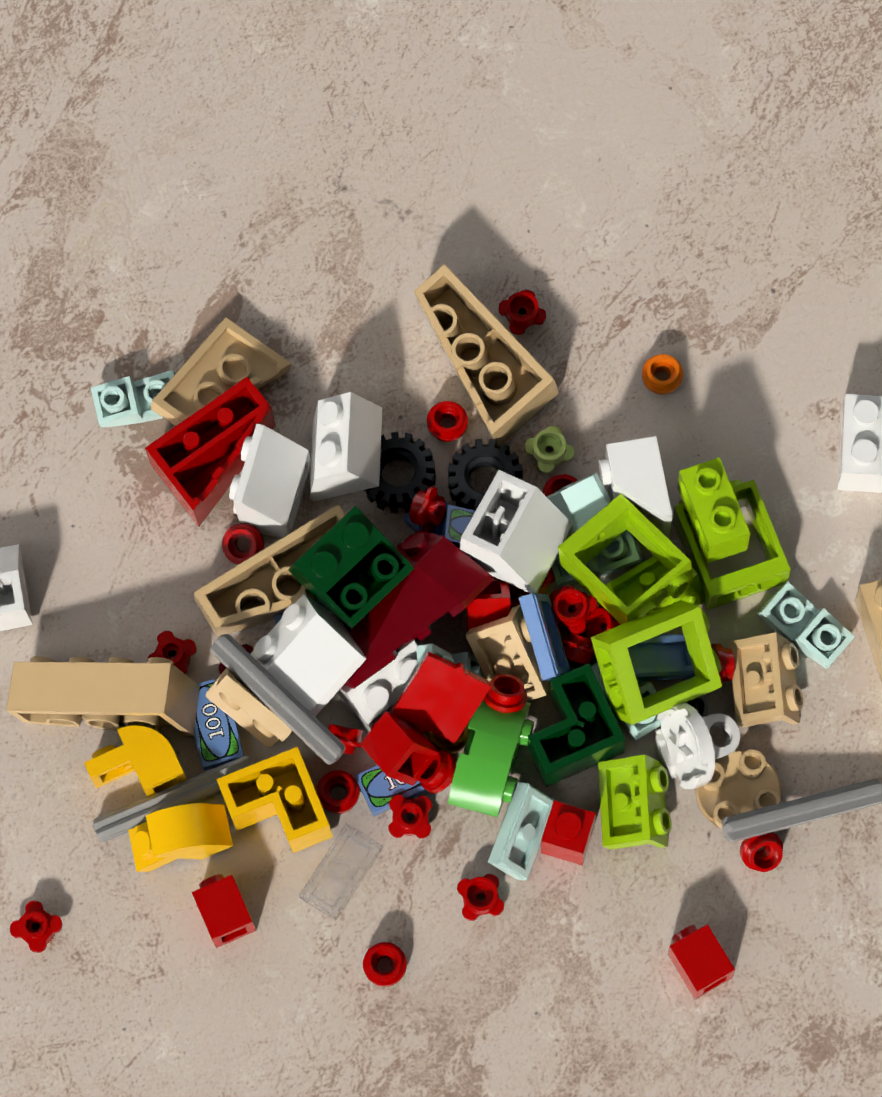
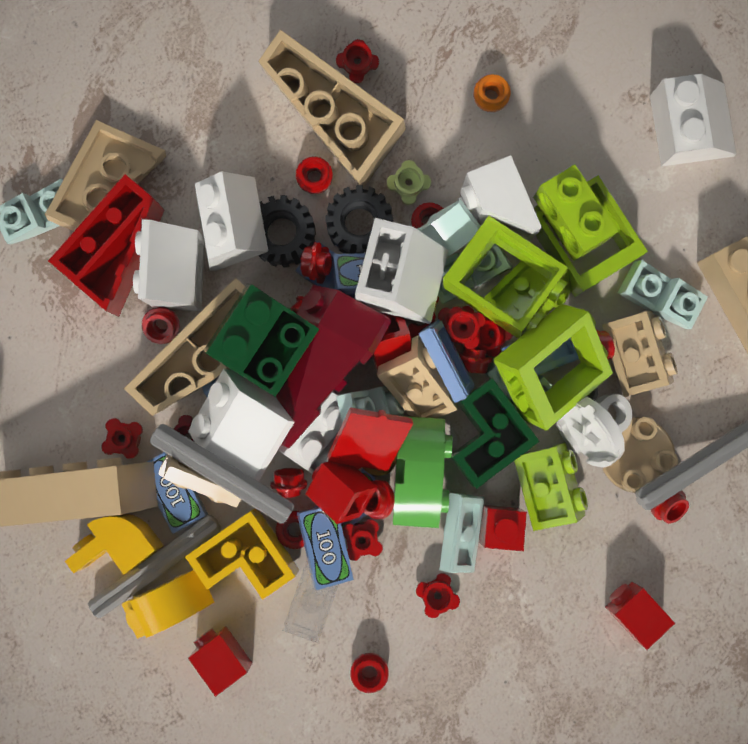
camera: 15 degrees left, 15 degrees up
(48, 927) = (69, 698): red plate -> none
(367, 810) = (324, 549): none -> medium blue tile
(506, 694) = (426, 412): red plate -> none

